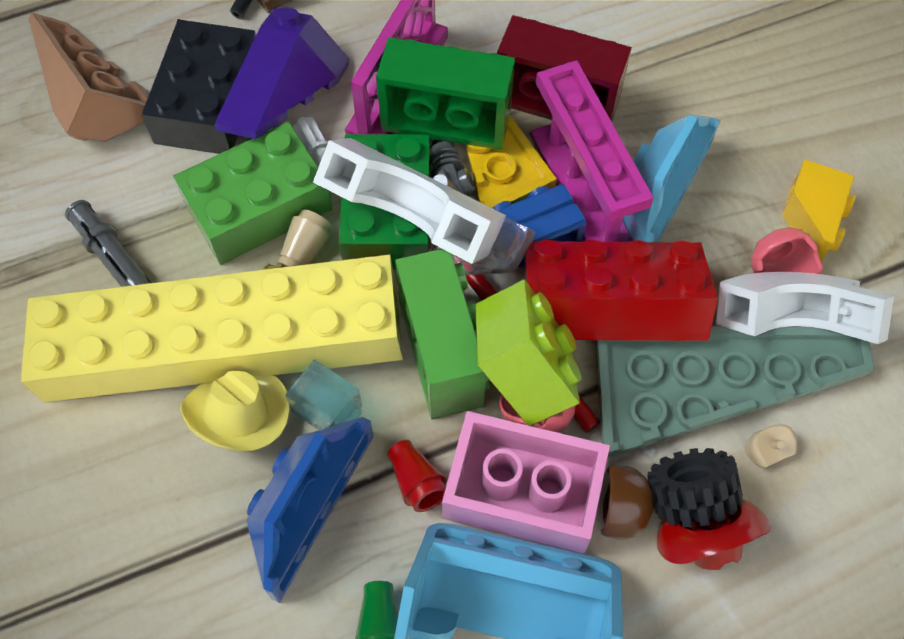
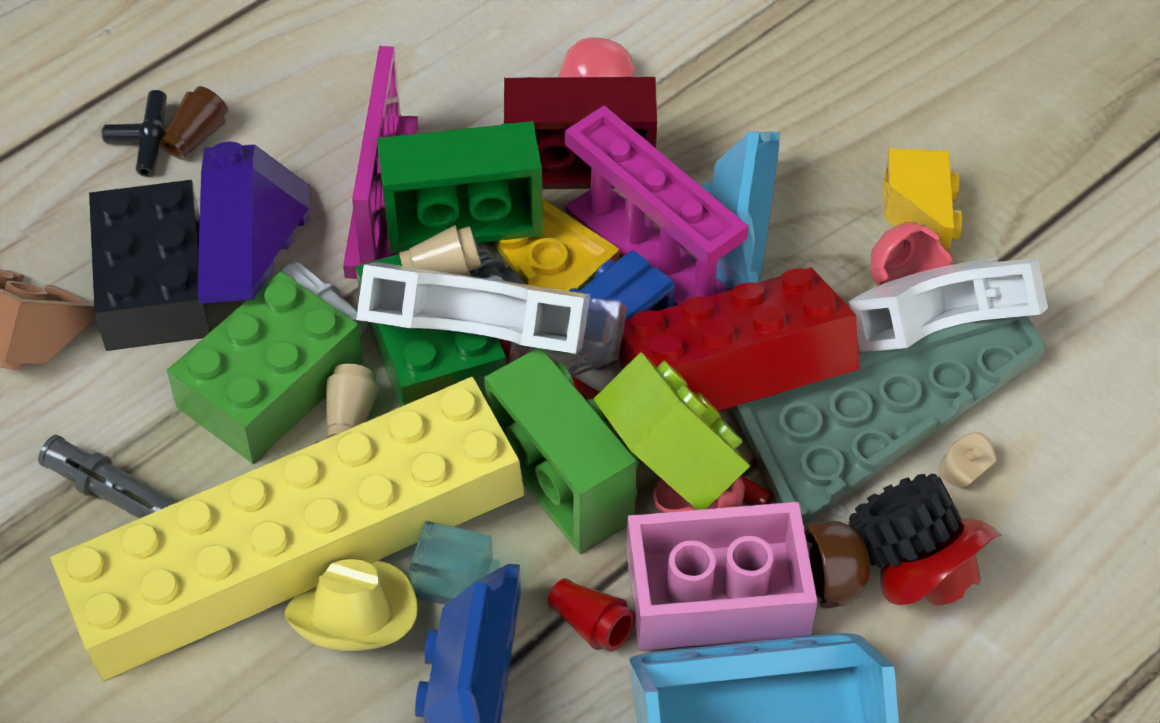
camera: 20 degrees left, 10 degrees down
(411, 146) = (447, 252): none -> tan cone
(601, 20) = (597, 59): none -> coral hair

